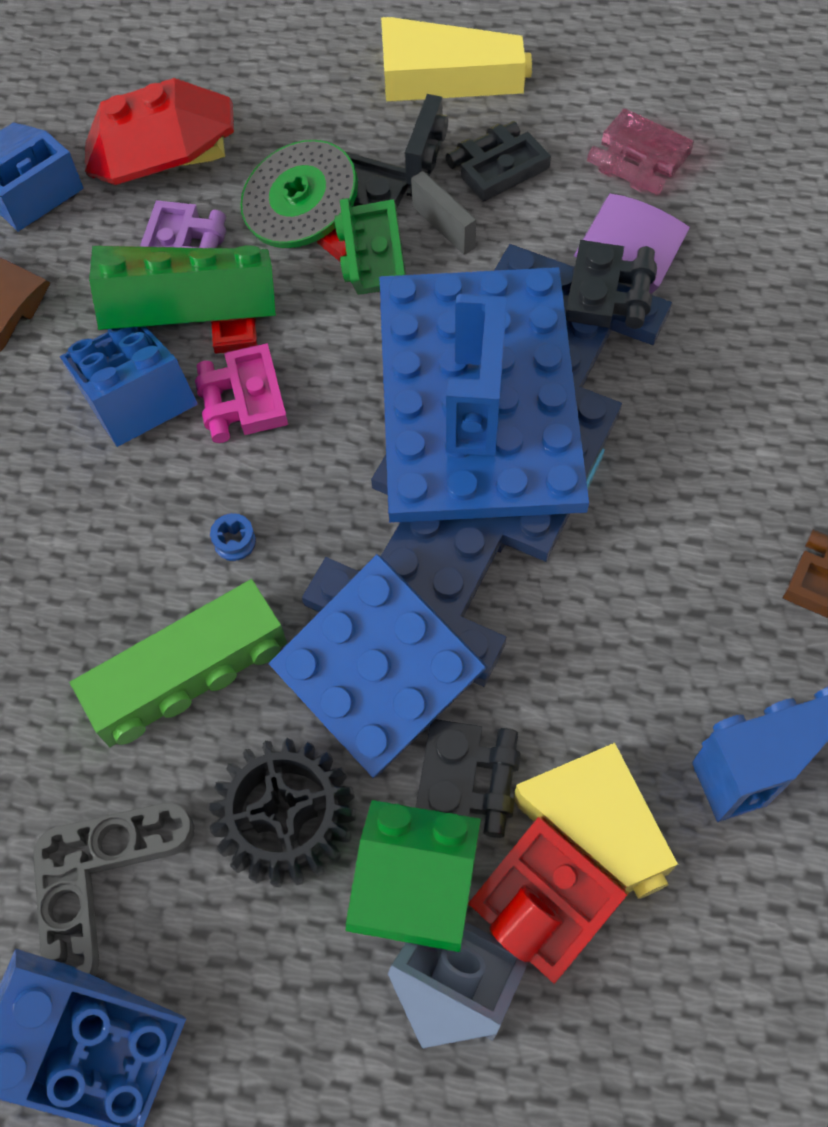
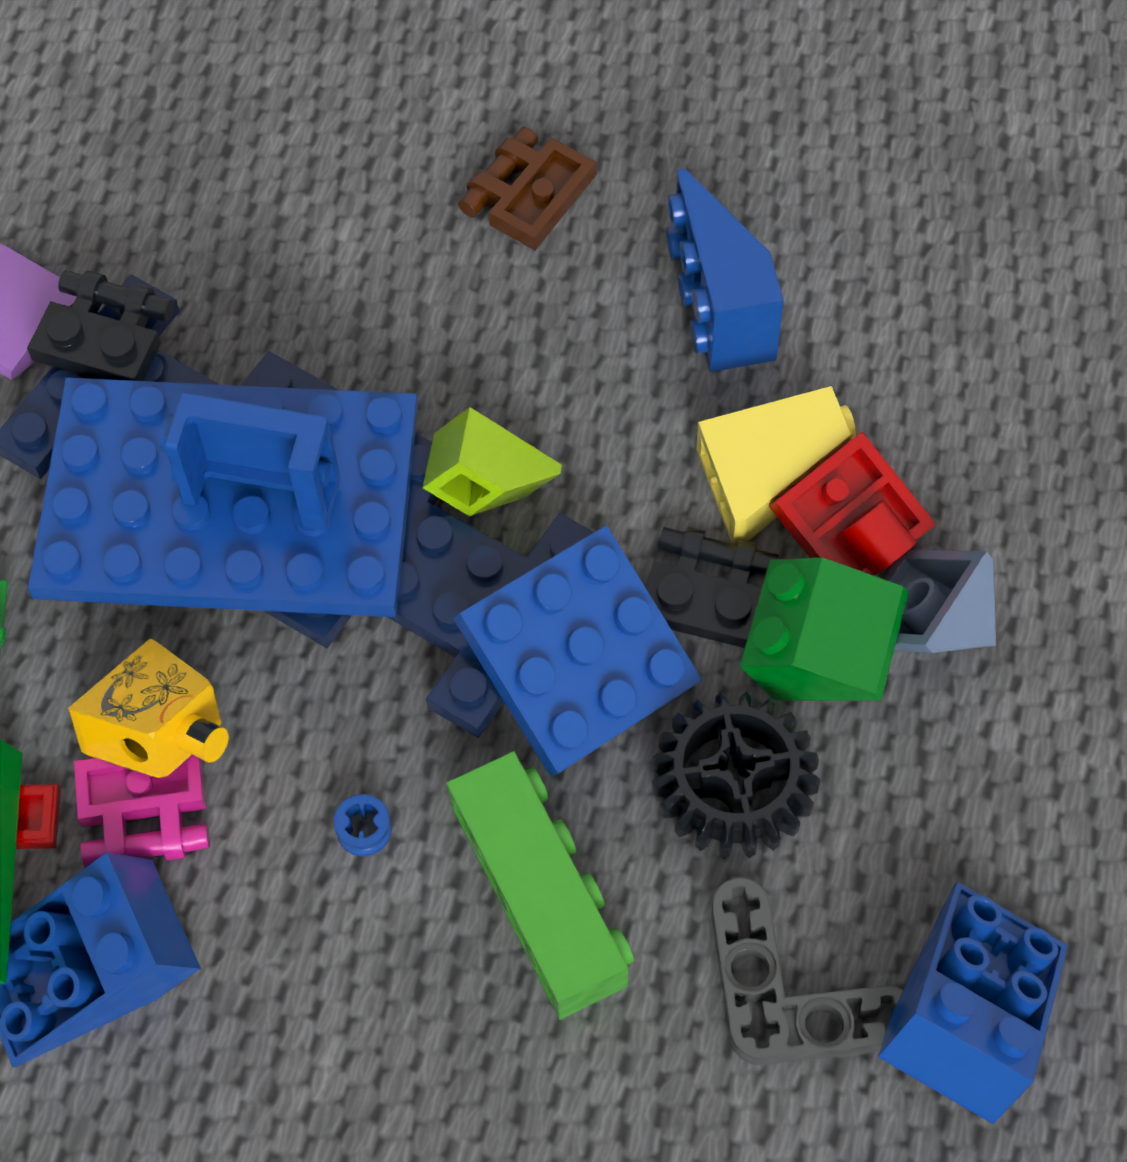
camera: 85 degrees left, 0 degrees up
(300, 378) = (150, 714): none -> yellow torso
(534, 567) = (484, 465): none -> lime slope

